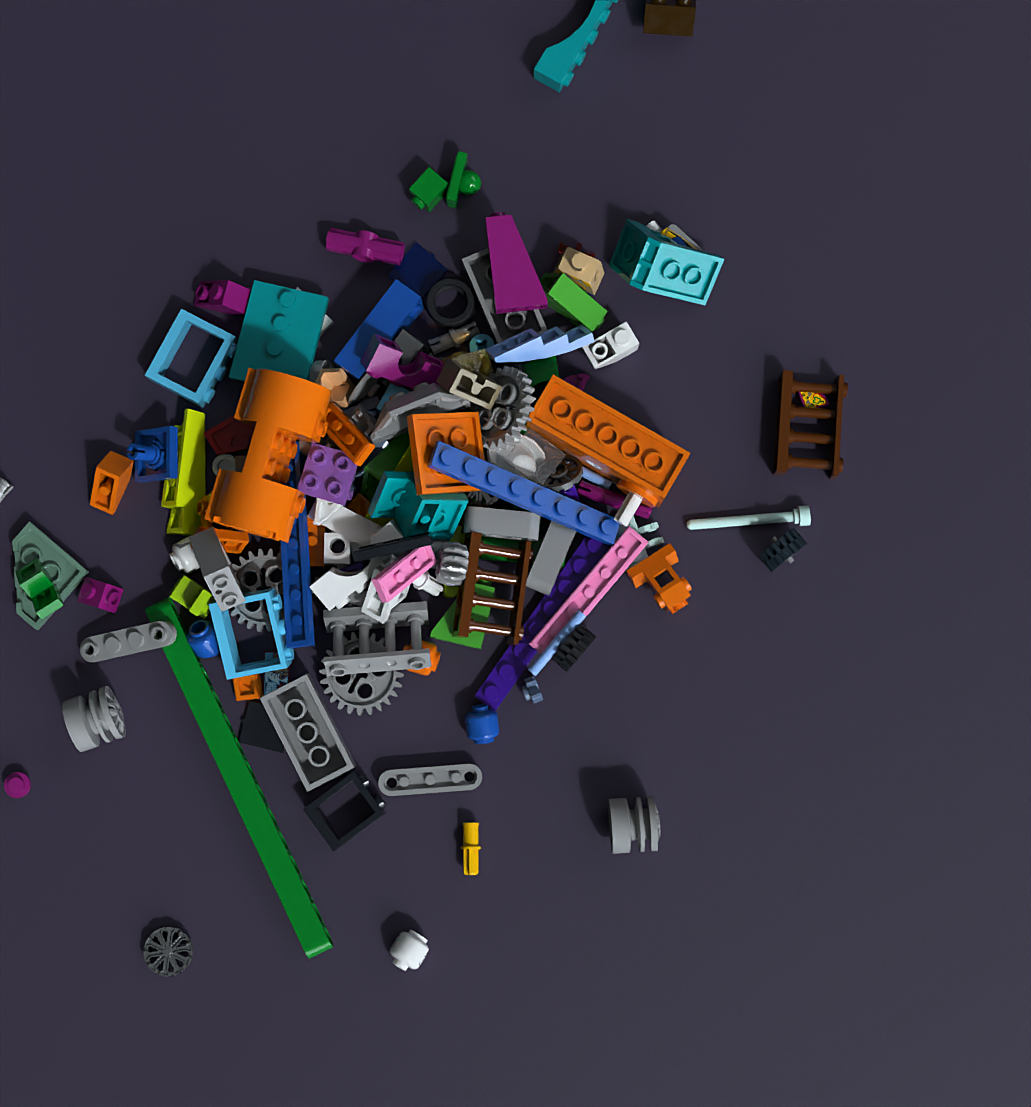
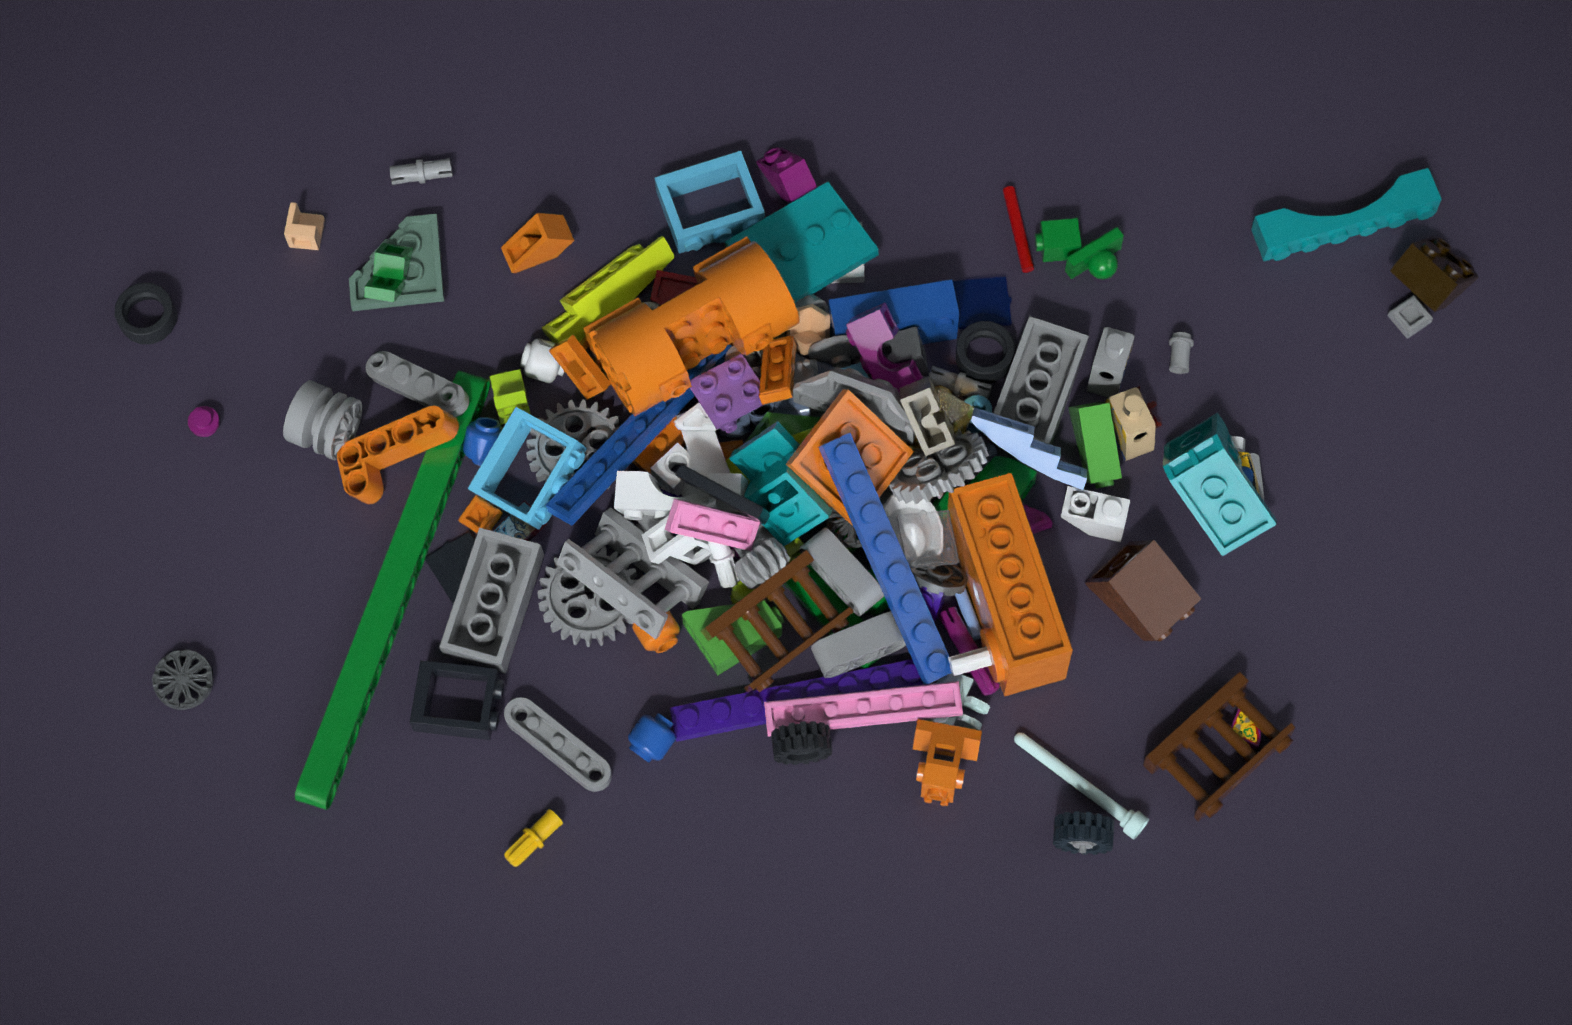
camera: 45 degrees right, 15 degrees down
(100, 595) = (433, 328): magenta bracket -> none
(155, 454) = (597, 250): blue plate -> none
(157, 692) = (430, 428): none -> orange beam
(217, 569) = (552, 381): light grey window -> none
(365, 246) = (955, 239): magenta piece -> none
(395, 204) = (1018, 229): none -> red bar
(409, 950) = (388, 875): white head -> none
(512, 272) = (1062, 362): magenta slope -> none
(532, 690) = (727, 748): sand blue plate -> none
(535, 241) = (1112, 358): none -> light grey torso
(555, 644) = (770, 724): light blue bar -> none
(565, 197) = (1180, 352): none -> light grey pin
(633, 824) = (704, 954): light grey wheel -> none
(678, 51) = (1410, 317): none -> light grey tile
(680, 368) = (1144, 590): none -> reddish brown slope

